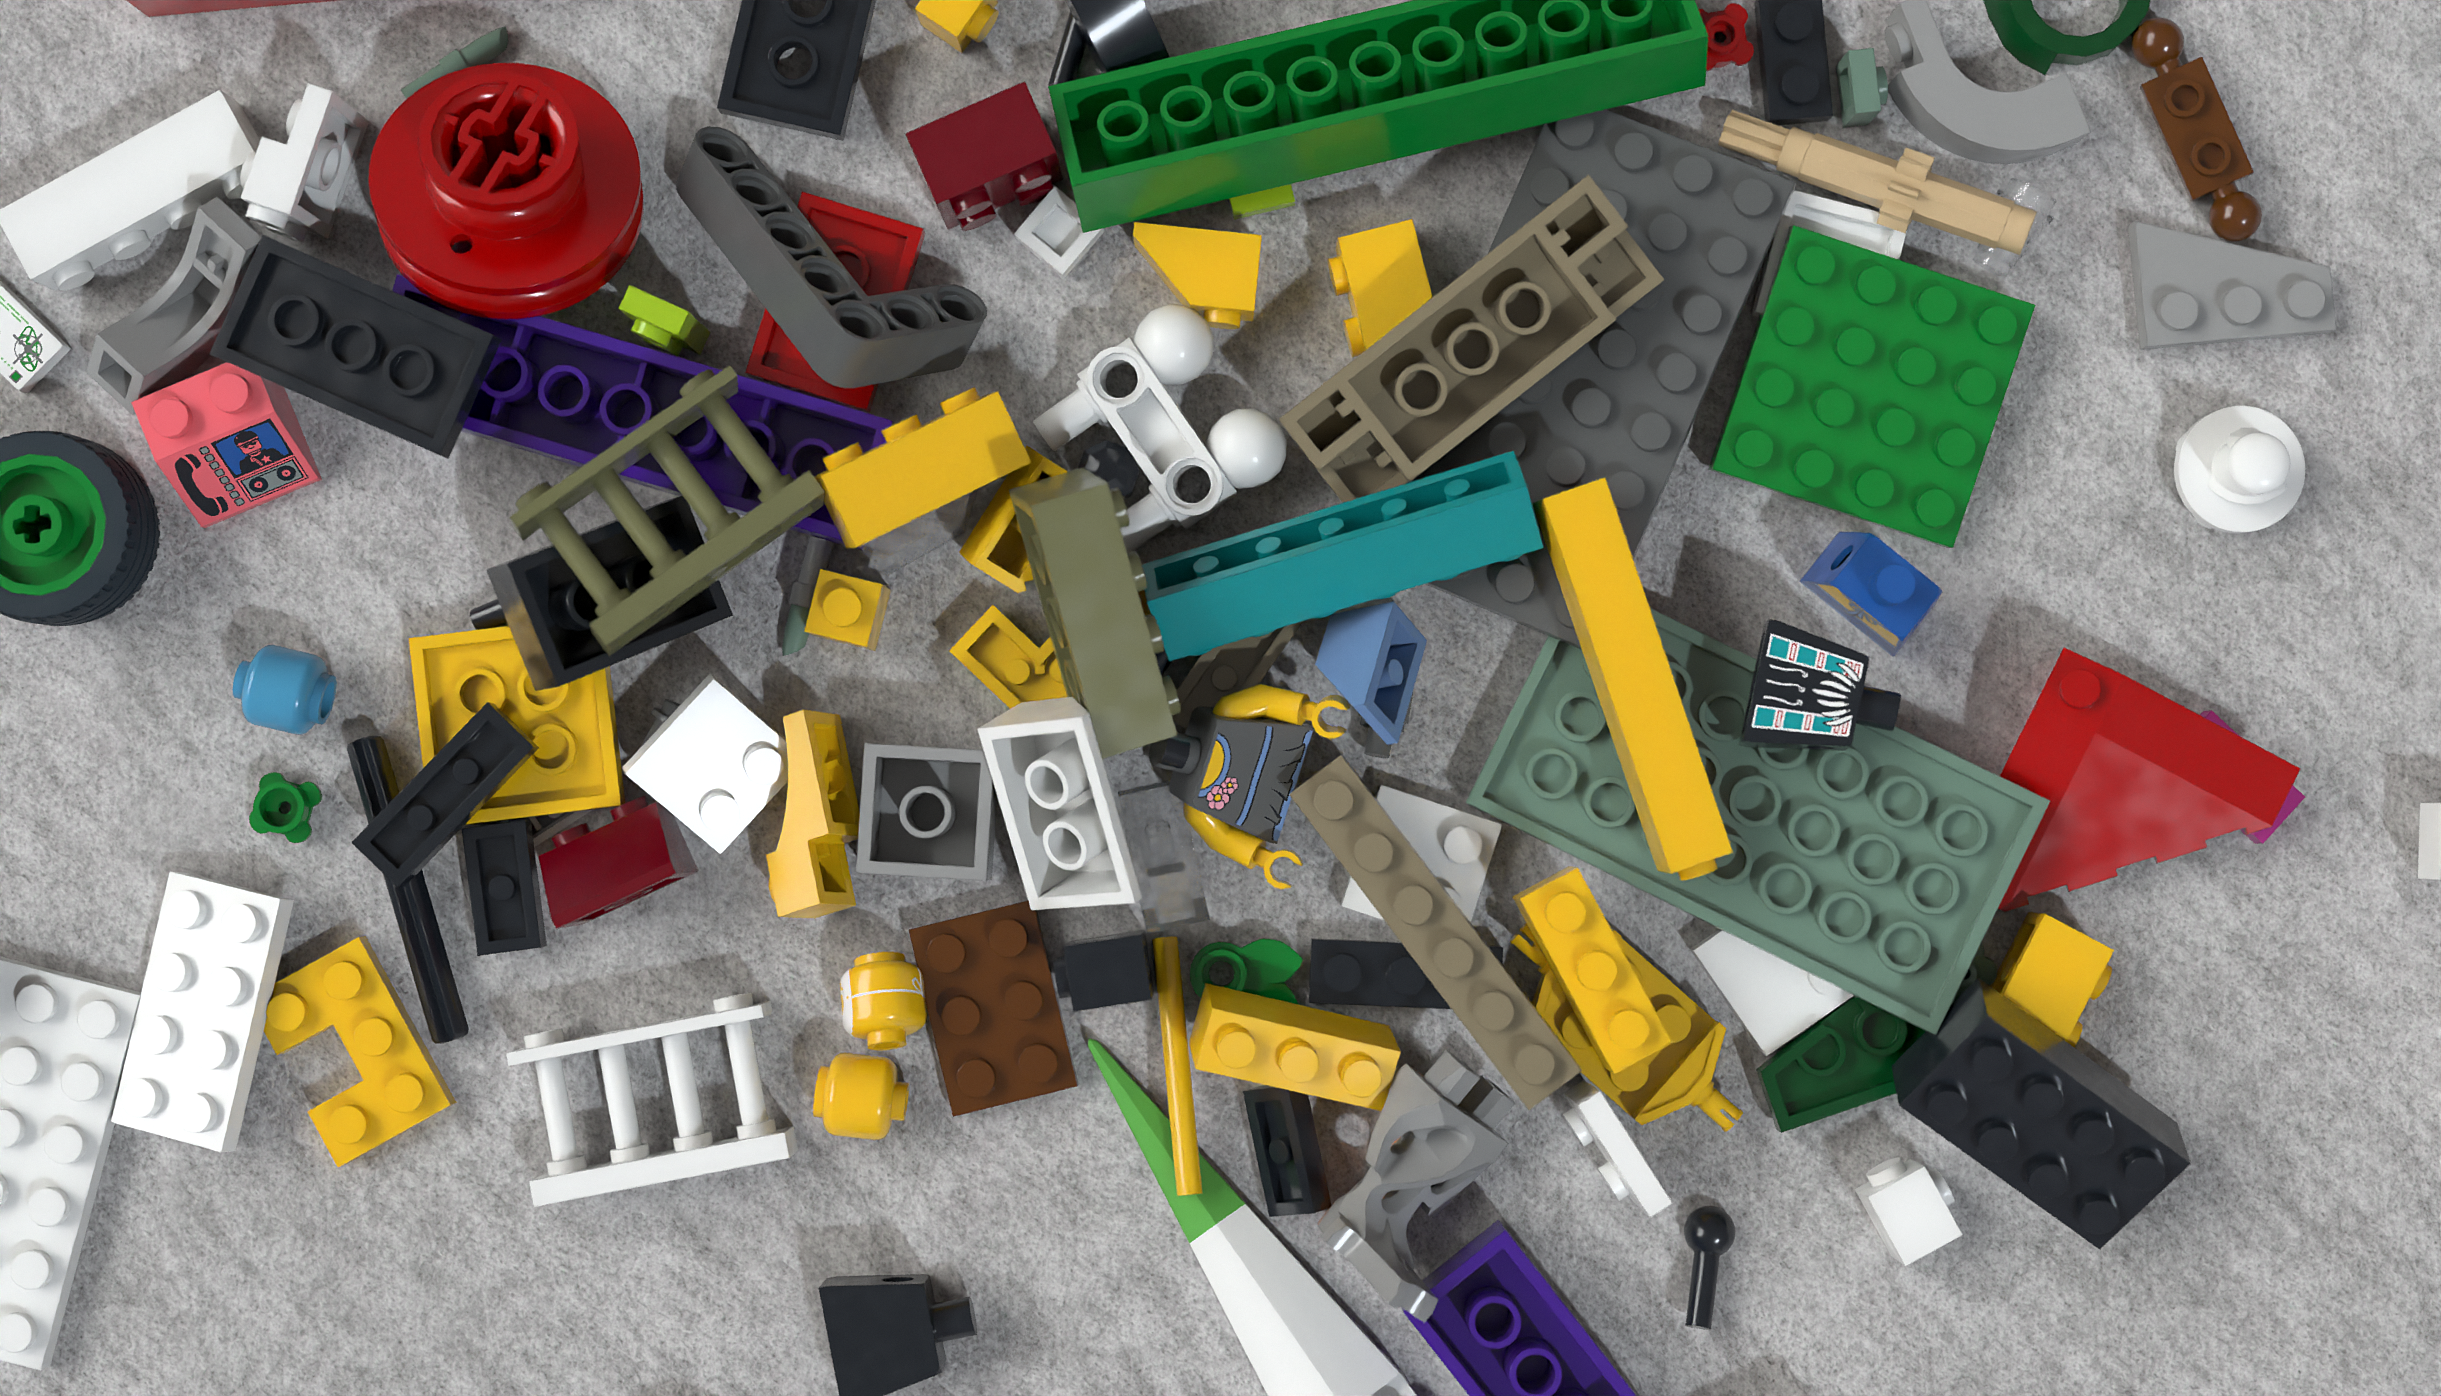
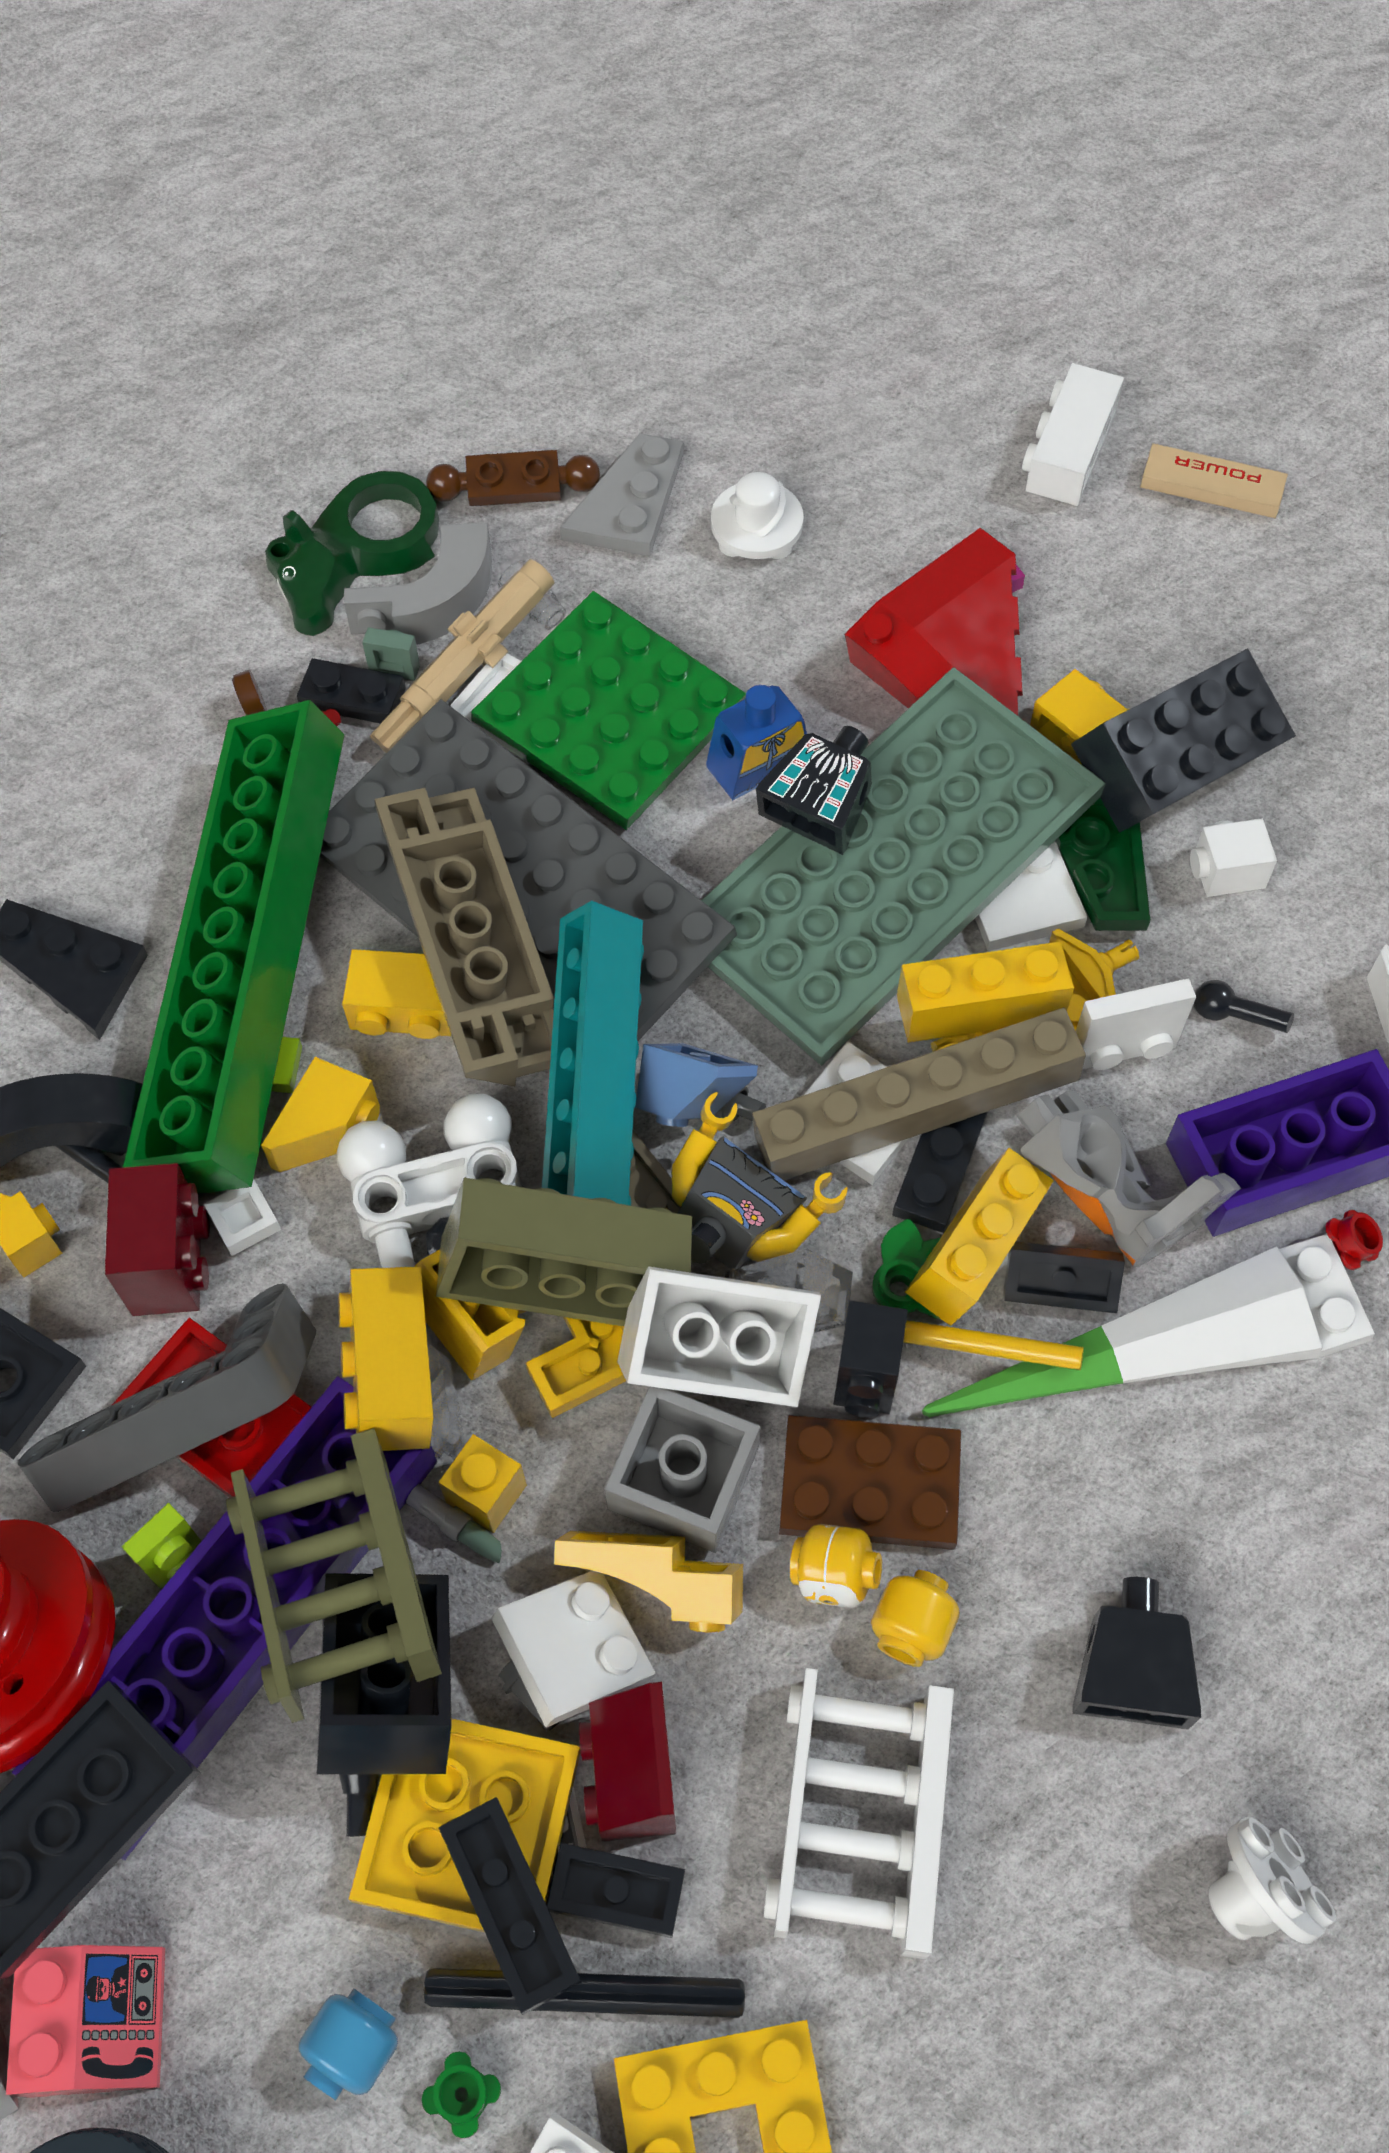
camera: 70 degrees left, 25 degrees down
(1633, 679) = (770, 892): yellow brick -> none

